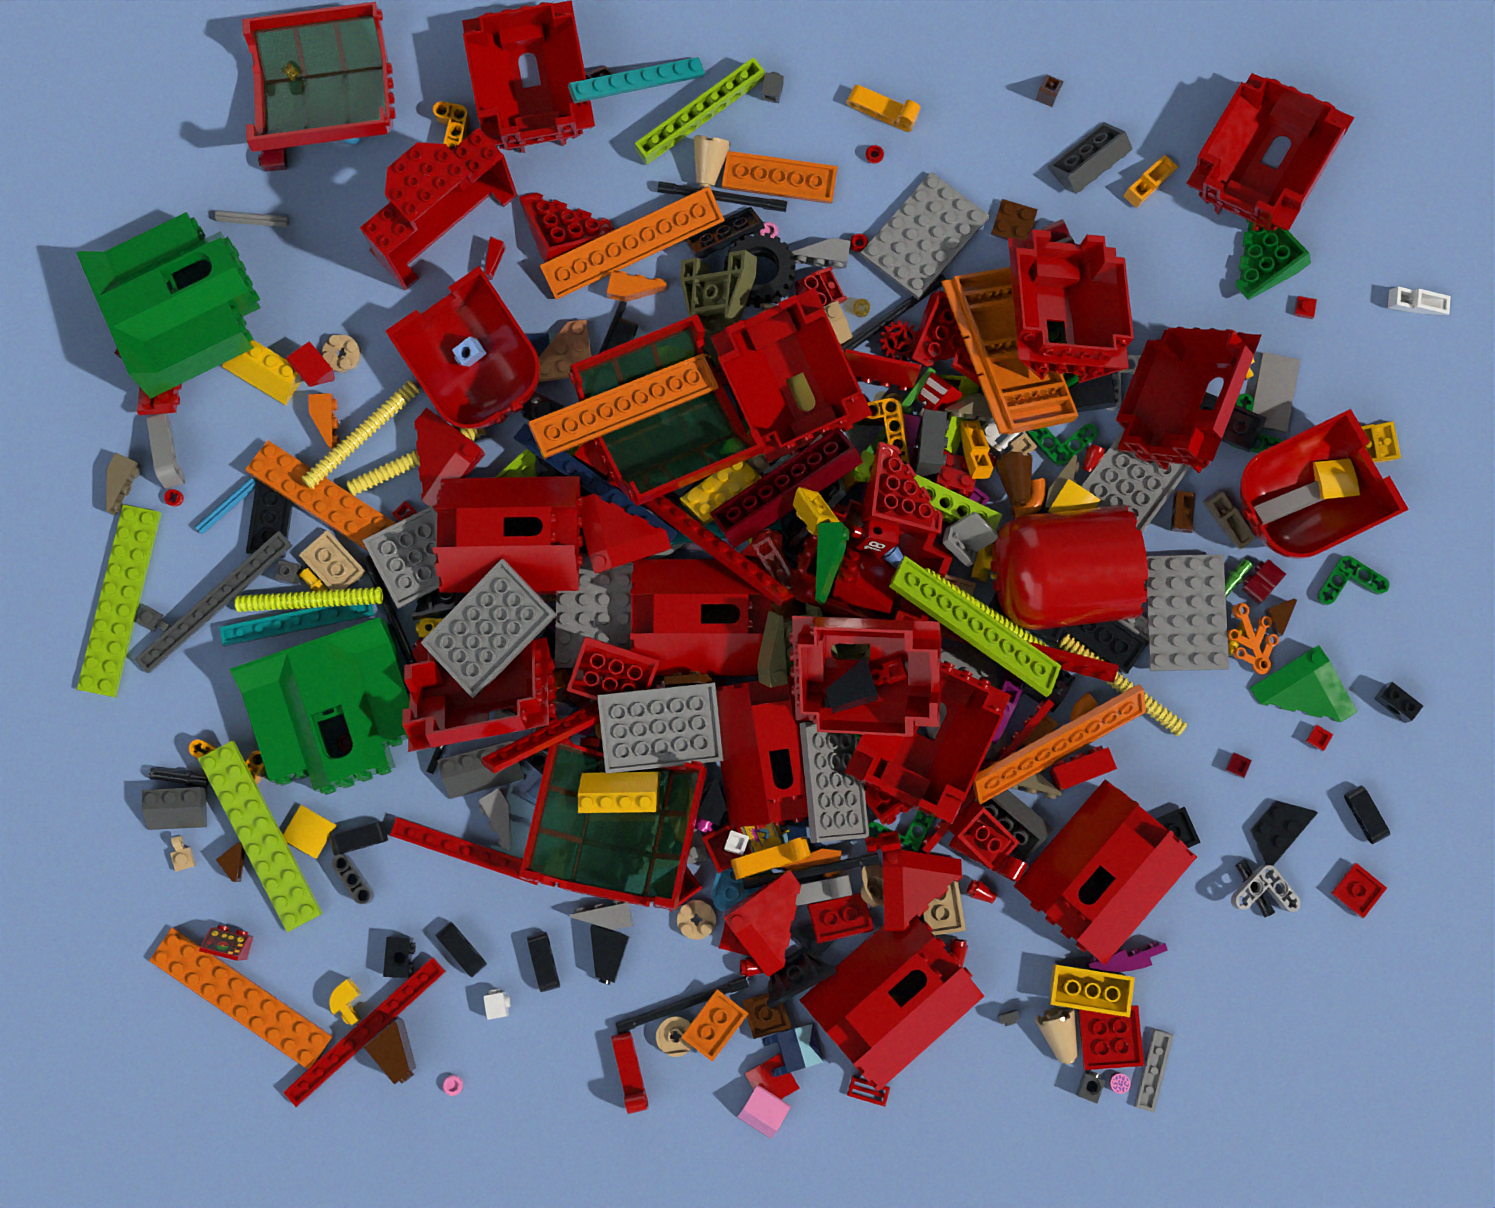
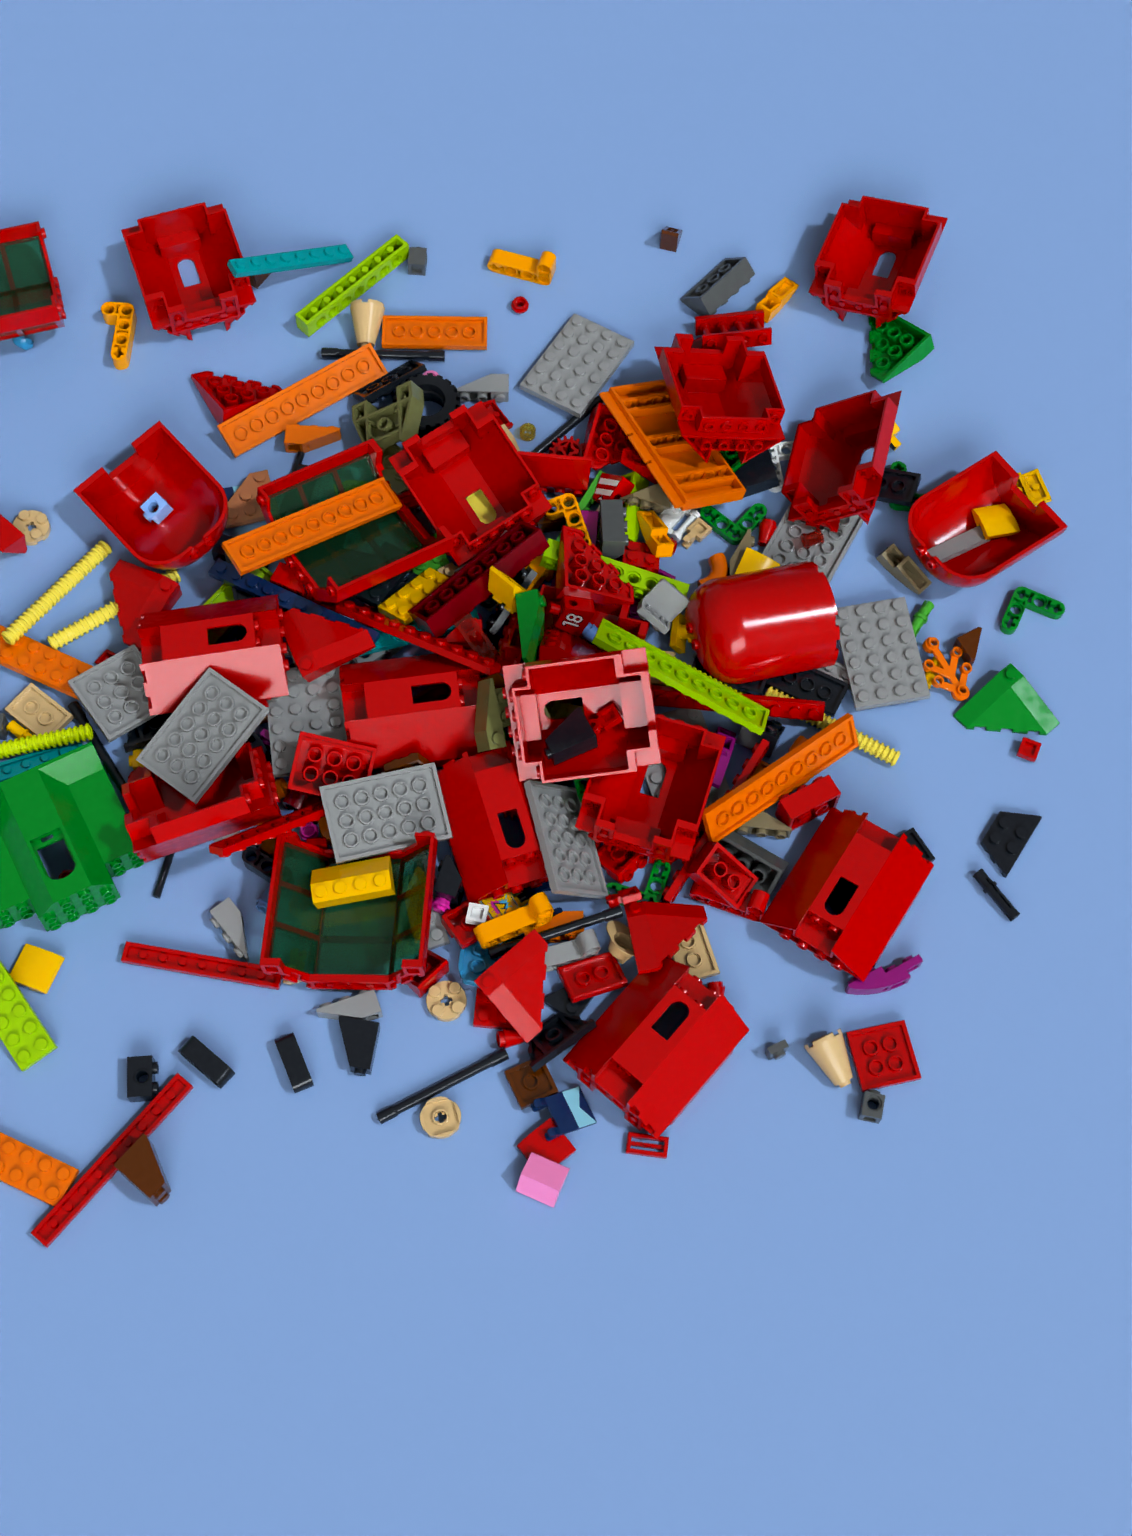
camera: 15 degrees left, 15 degrees down
(322, 411) = (17, 578): orange slope -> none
(341, 999) = (86, 1127): yellow brick -> none
(344, 874) = (92, 1014): dark grey beam -> none
(358, 838) = (88, 967): black beam -> none
(430, 194) = (110, 366): red panel -> none
(453, 1085) = (212, 1202): bright pink tile -> none
(466, 774) = (208, 884): dark grey slope -> none
(495, 252) = (173, 421): red slope -> none
(496, 1004) = (250, 1111): white brick -> none
(630, 1073) = (397, 1159): red beam -> none
(714, 1025) = (479, 1097): orange plate -> none
(858, 237) = (516, 374): red plate -> none
(981, 892) = (728, 934): red cone -> none
(1013, 220) = (653, 338): reddish brown plate -> none
(1015, 475) = (696, 551): reddish brown cone -> none
(1091, 990) = (854, 1007): yellow slope -> none
(1097, 205) = (746, 324): none -> red fence
(1120, 1083) = (900, 1100): bright pink tile -> none
(1138, 475) = (812, 538): none -> clear red bush
(1153, 1070) = (931, 1083): light grey tile -> none
(1182, 512) = (859, 568): reddish brown hinge -> none
(1238, 765) = (957, 784): dark red plate -> none
(1263, 581) = (946, 618): dark red brick -> none
(1265, 883) = (1003, 887): light grey beam -> none
(1276, 390) = (924, 455): light grey tile -> none
(1305, 307) = (937, 386): red plate -> none
(1358, 890) = (1096, 883): red plate -> none
(1367, 814) = (1089, 812): black beam -> none
(1398, 702) = (1096, 707): black brick -> none
(1418, 301) = (1037, 368): white slope -> none

